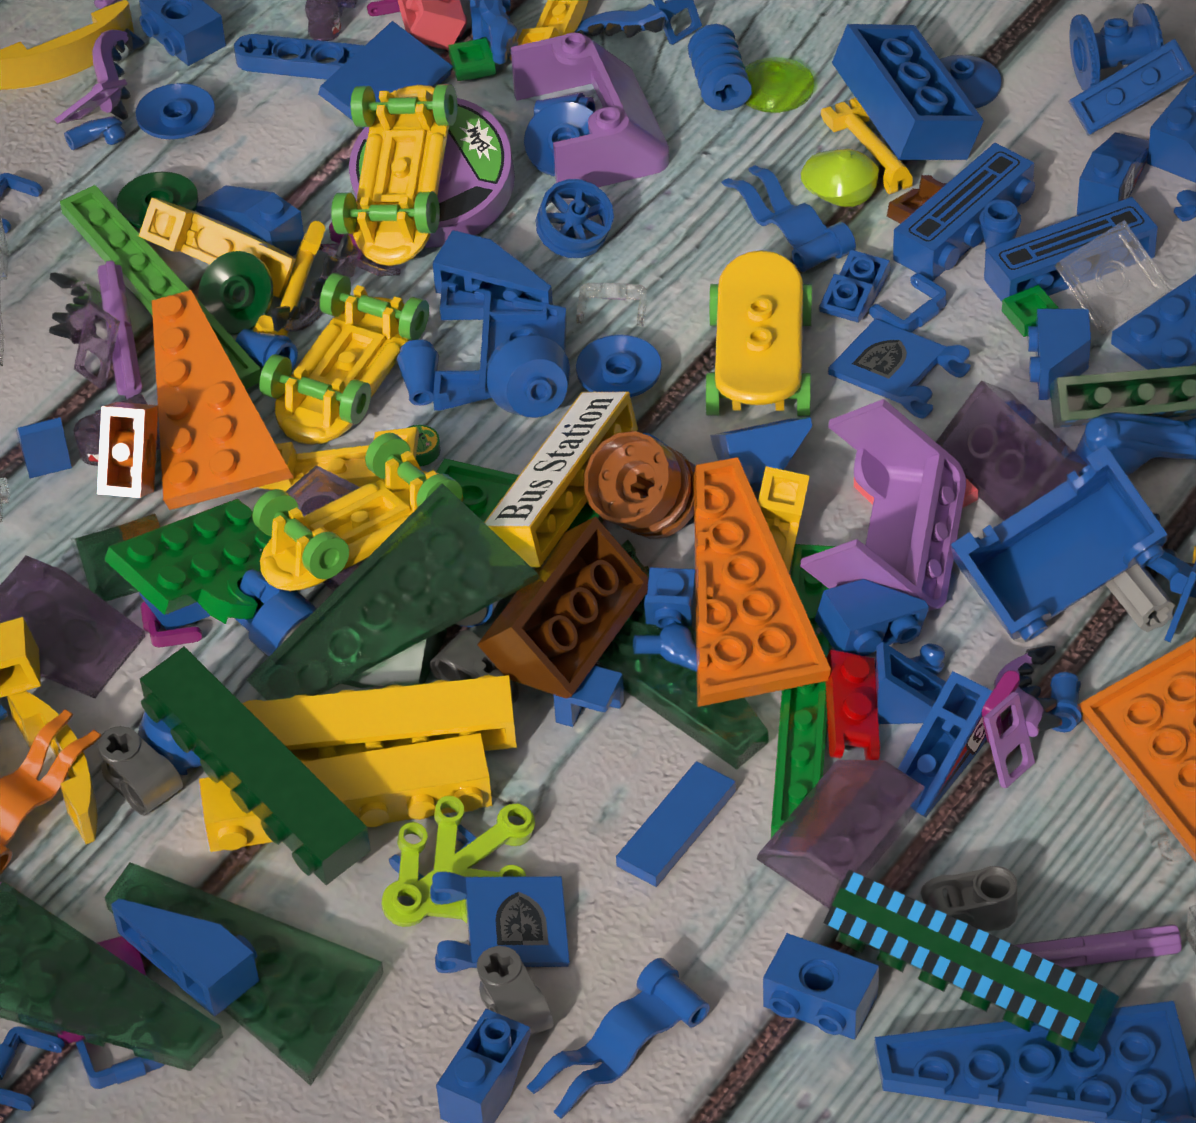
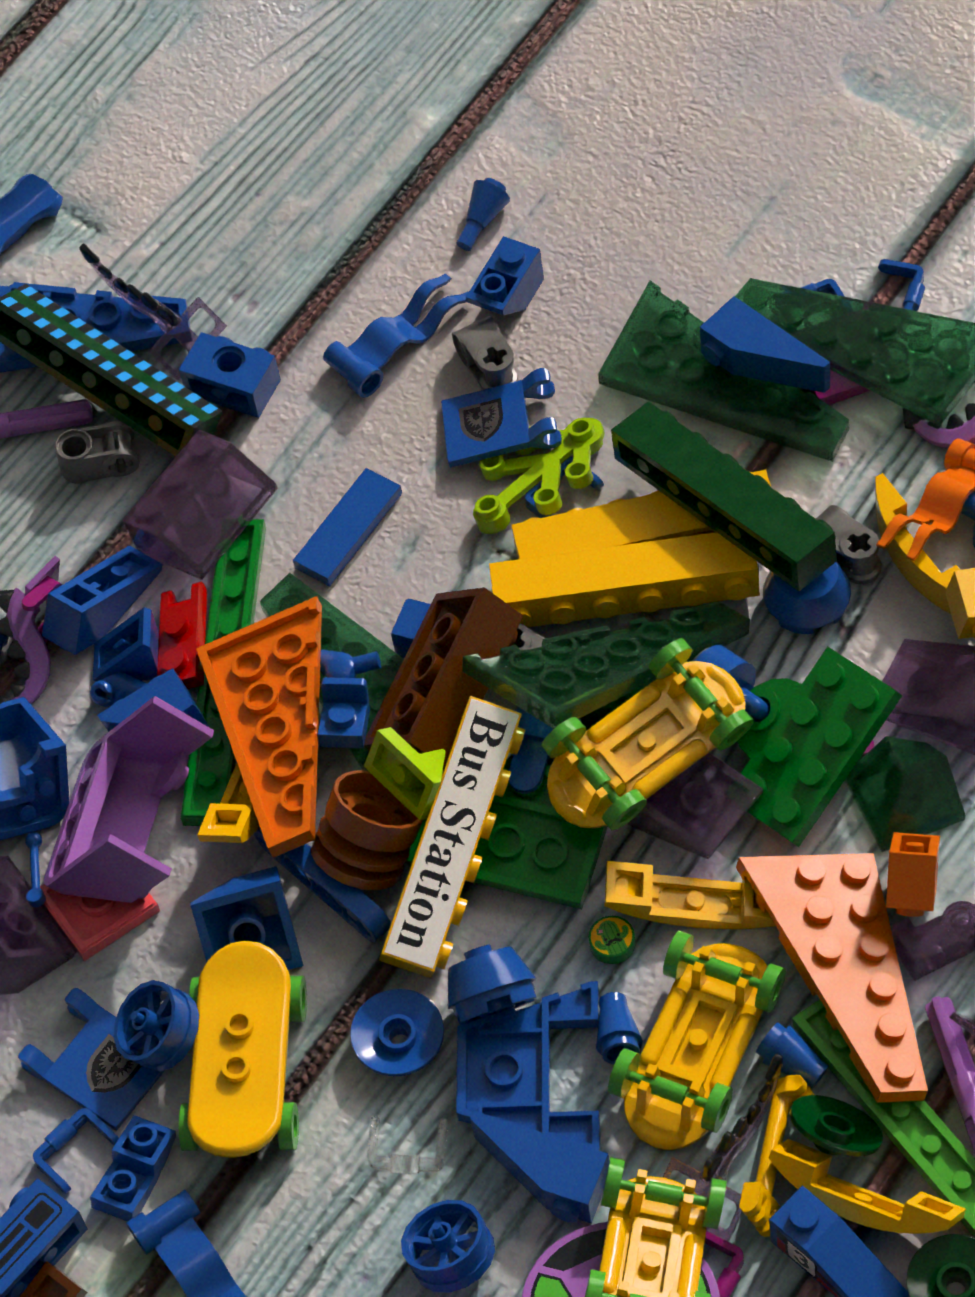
camera: 175 degrees left, 10 degrees up
(588, 496) = (405, 772): none -> lime slope
(838, 350) = (147, 1022): none -> blue wheel
(932, 1052) = (165, 318): none -> clear purple piece
(973, 475) = (36, 895): none -> blue hinge

